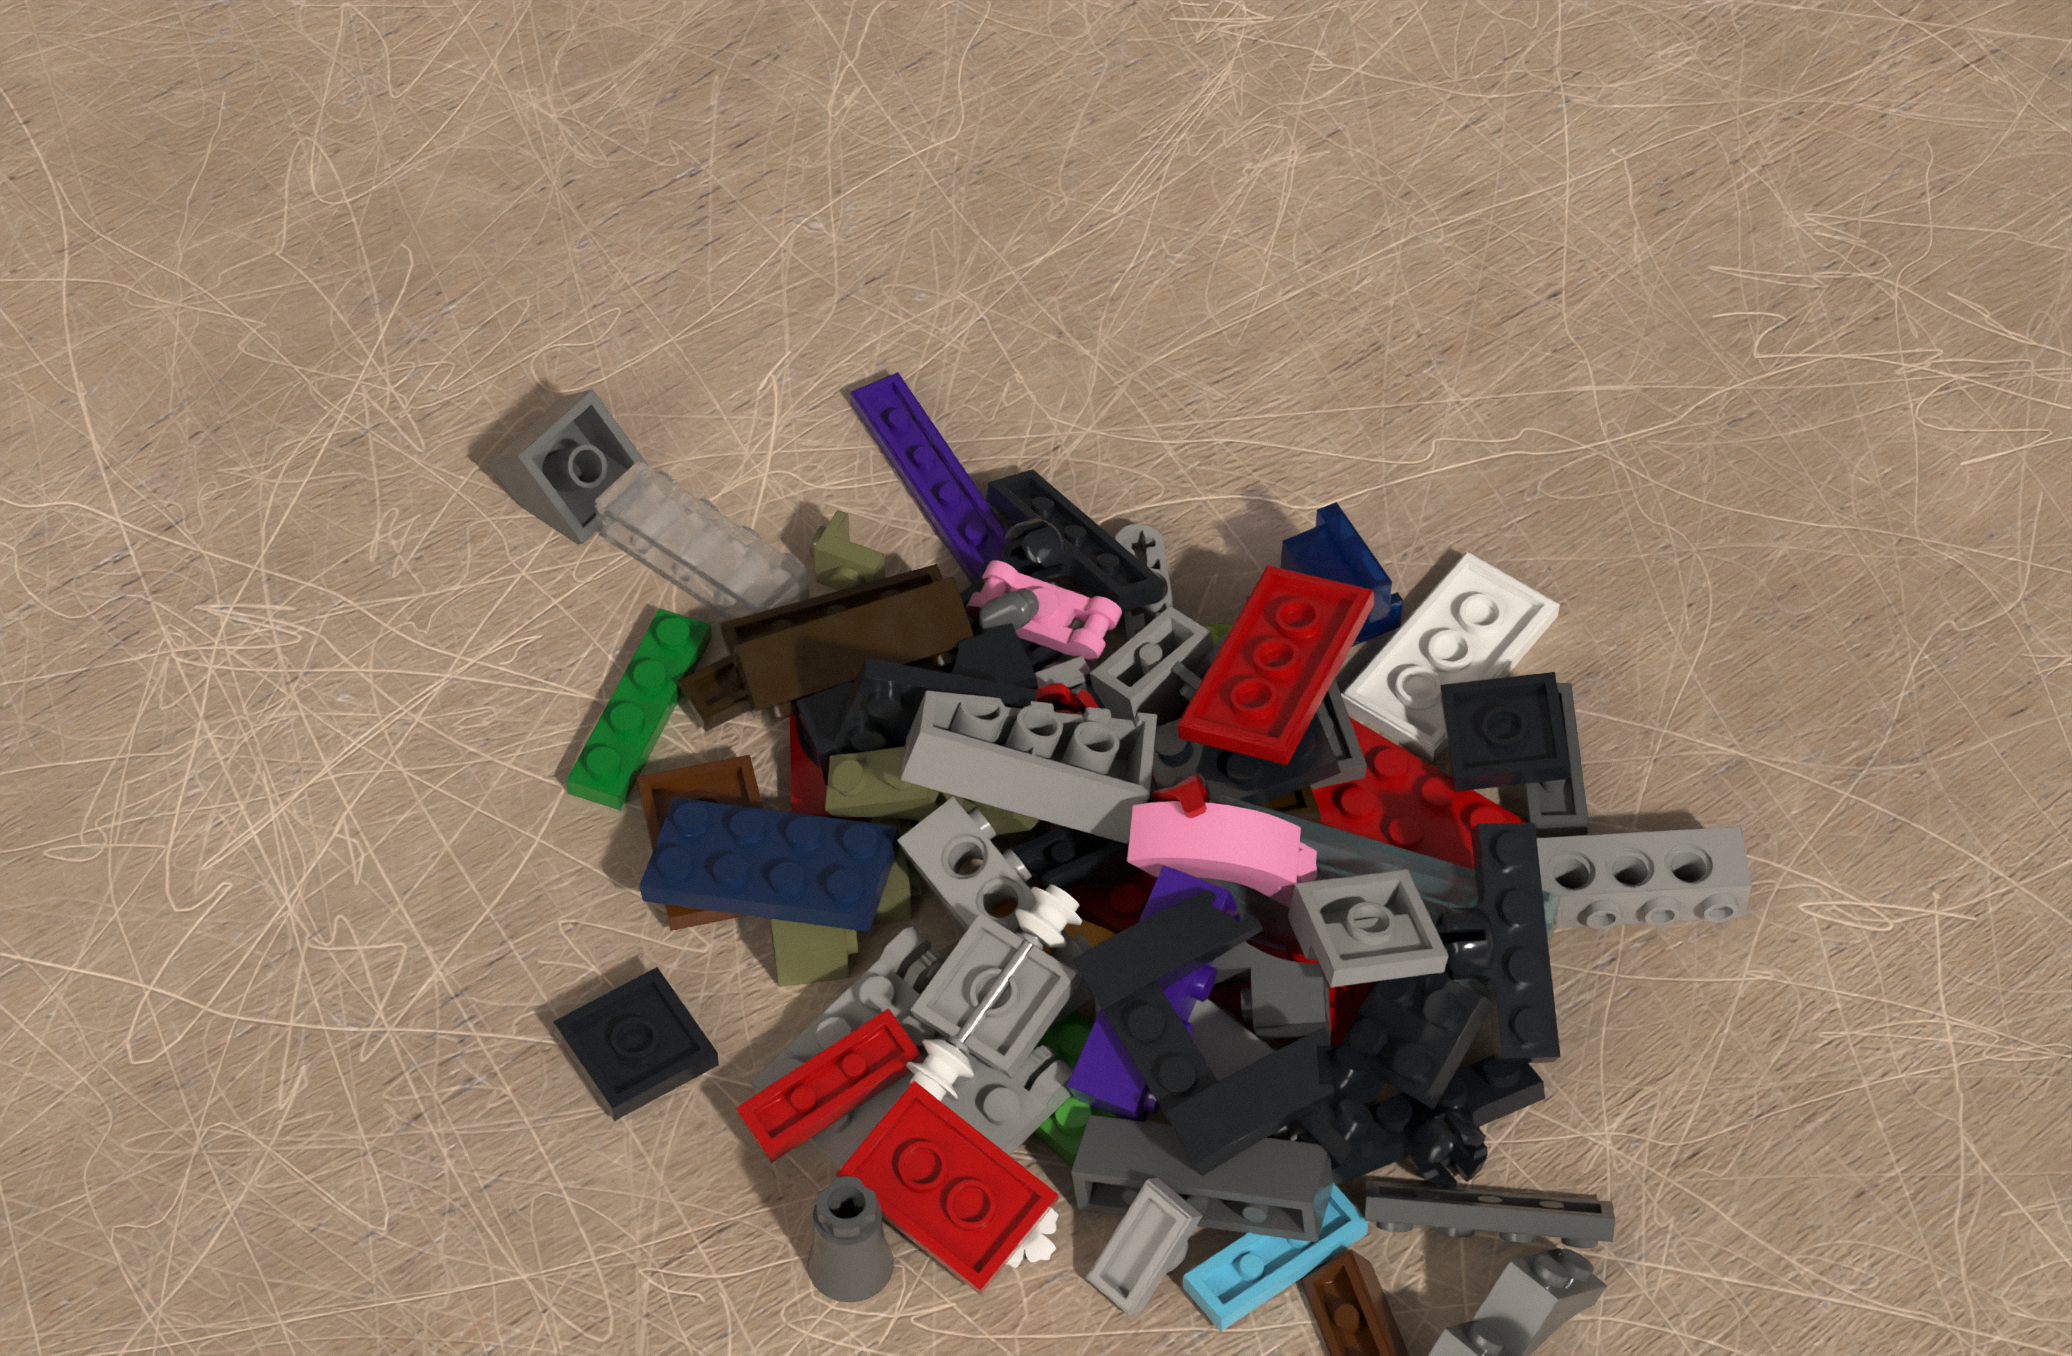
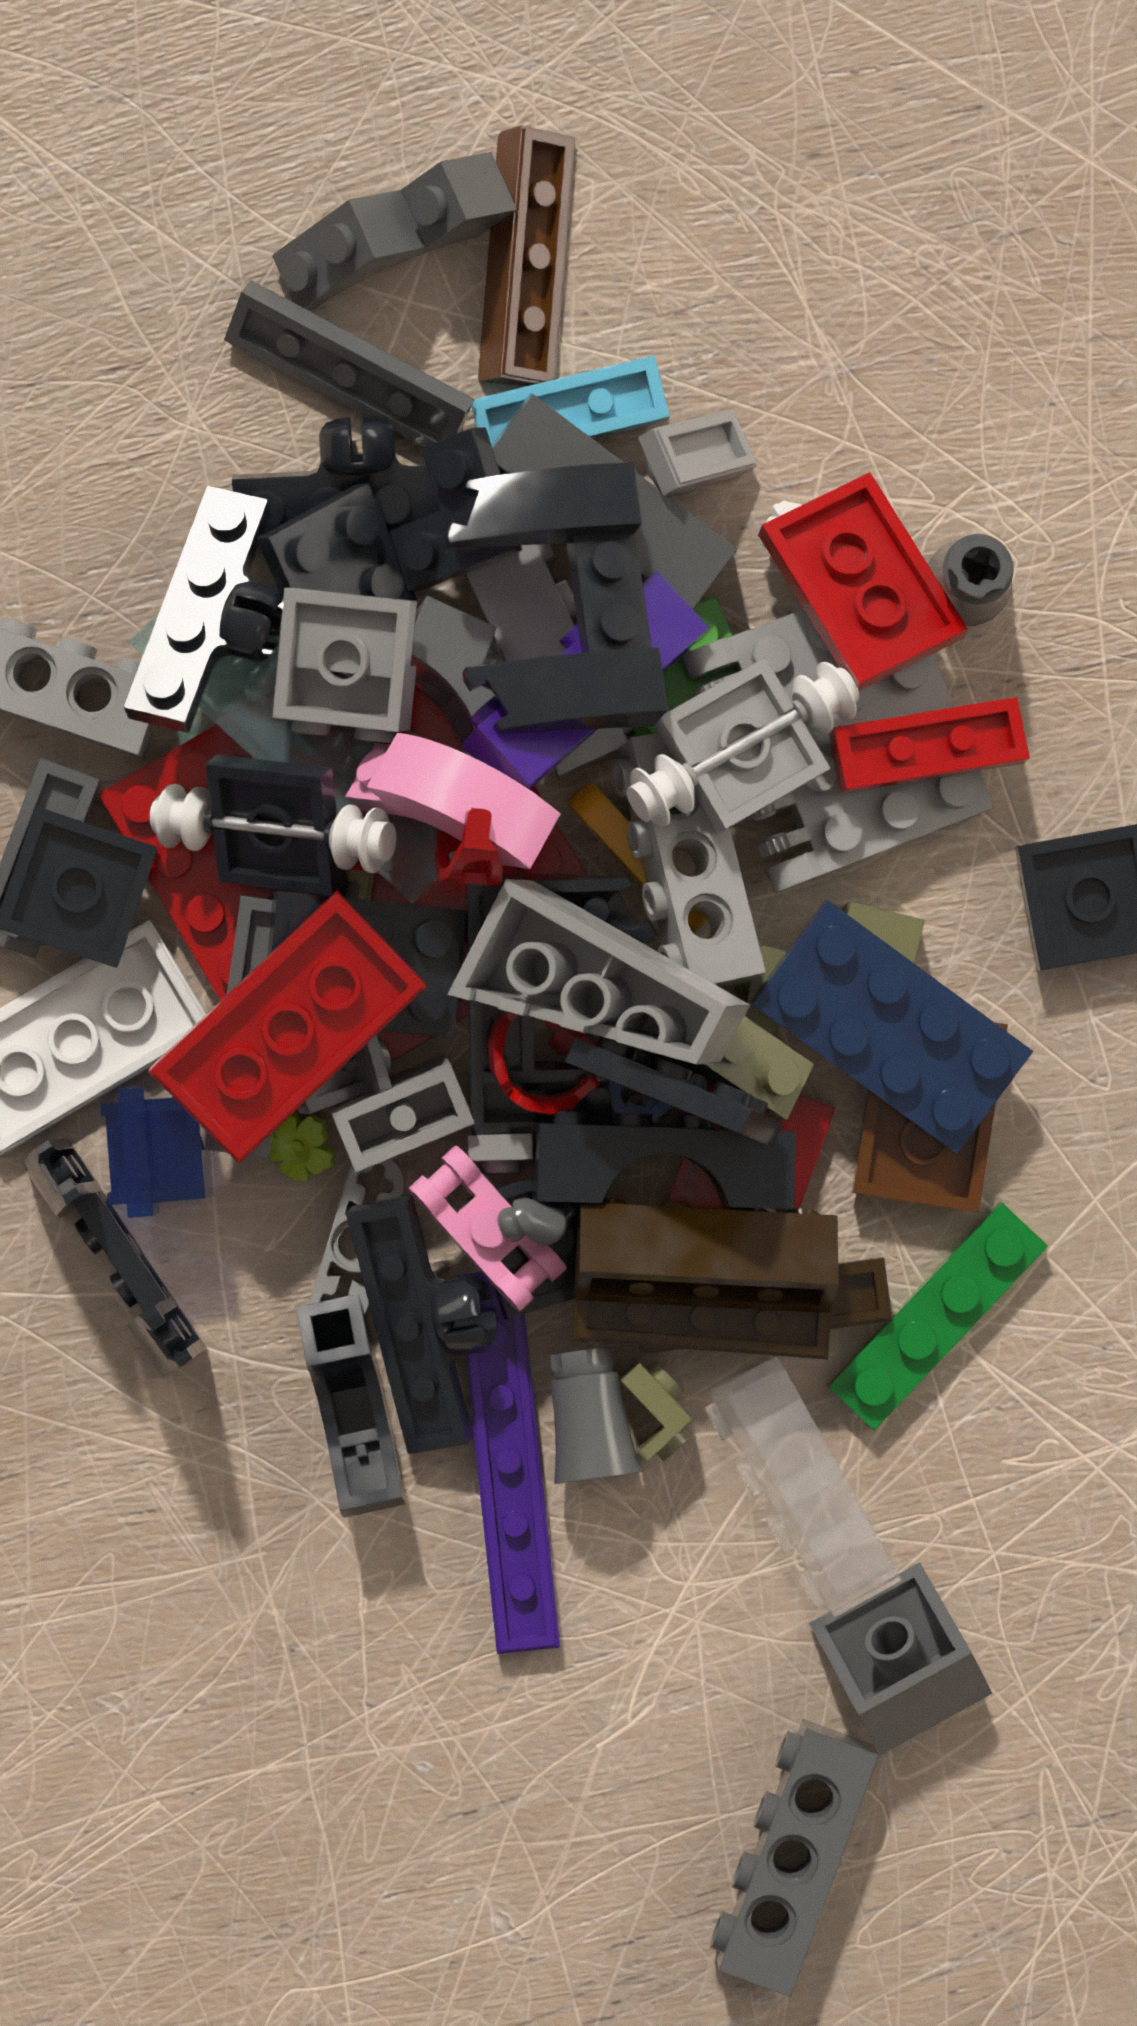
camera: 160 degrees left, 35 degrees up
(602, 313) = (777, 1954): none -> dark grey brick
(890, 522) = (590, 1418): none -> dark grey plant
(1087, 474) = (351, 1405): none -> black arch
(1267, 478) = (69, 1185): none -> black wedge
(1367, 804) = (274, 825): none -> black plate

